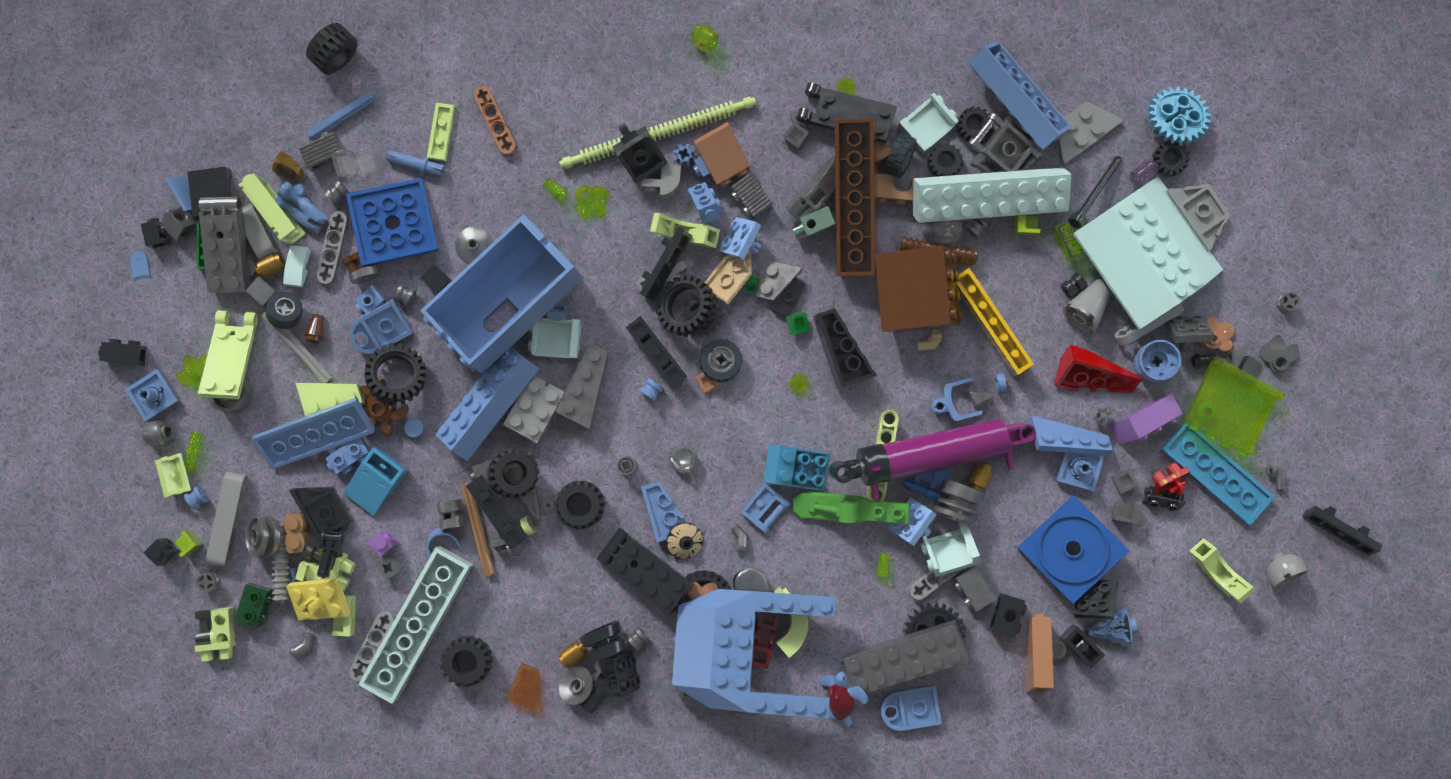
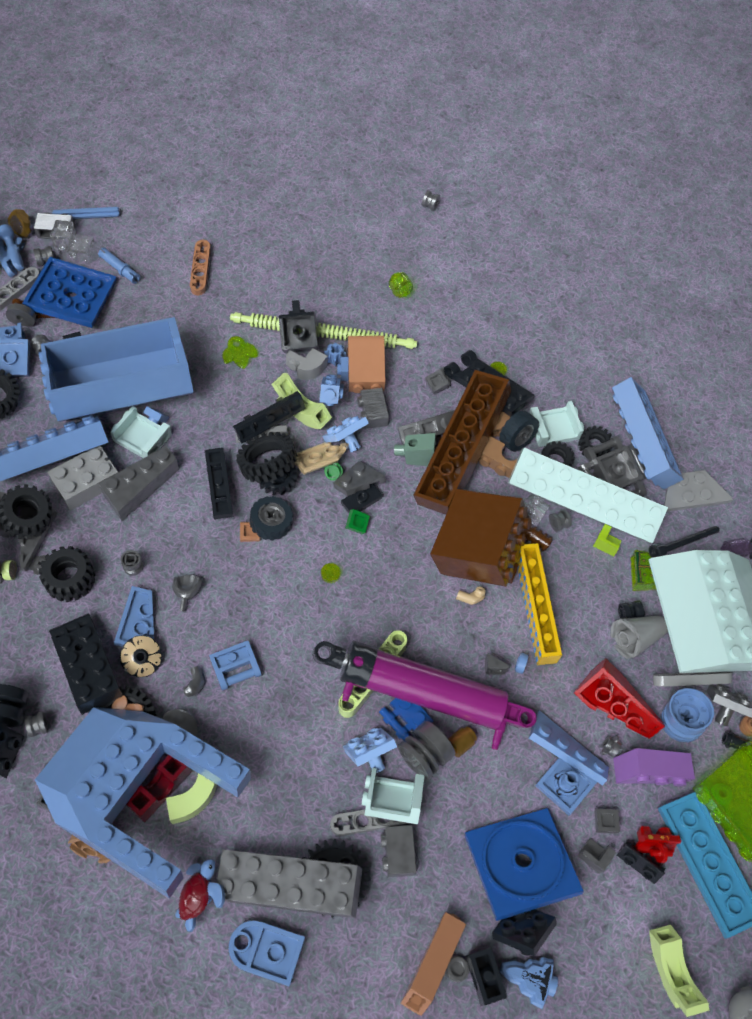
camera: 20 degrees right, 25 degrees down
(331, 48) = (107, 155): black tyre -> none
(441, 132) = (153, 256): yellowish green tile -> none
(559, 192) = (216, 333): clear neon green pin -> none
(651, 389) = (195, 512): medium blue wheel -> none
(796, 467) = (285, 642): dark azure slope -> none
(841, 350) = (384, 567): black wedge -> none
(848, 508) = (314, 703): bright green piece -> none
(883, 565) = (317, 781): clear neon green pin -> none
(948, 404) = (460, 656): medium blue piece -> none
(1004, 604) = (426, 886): black brick -> none

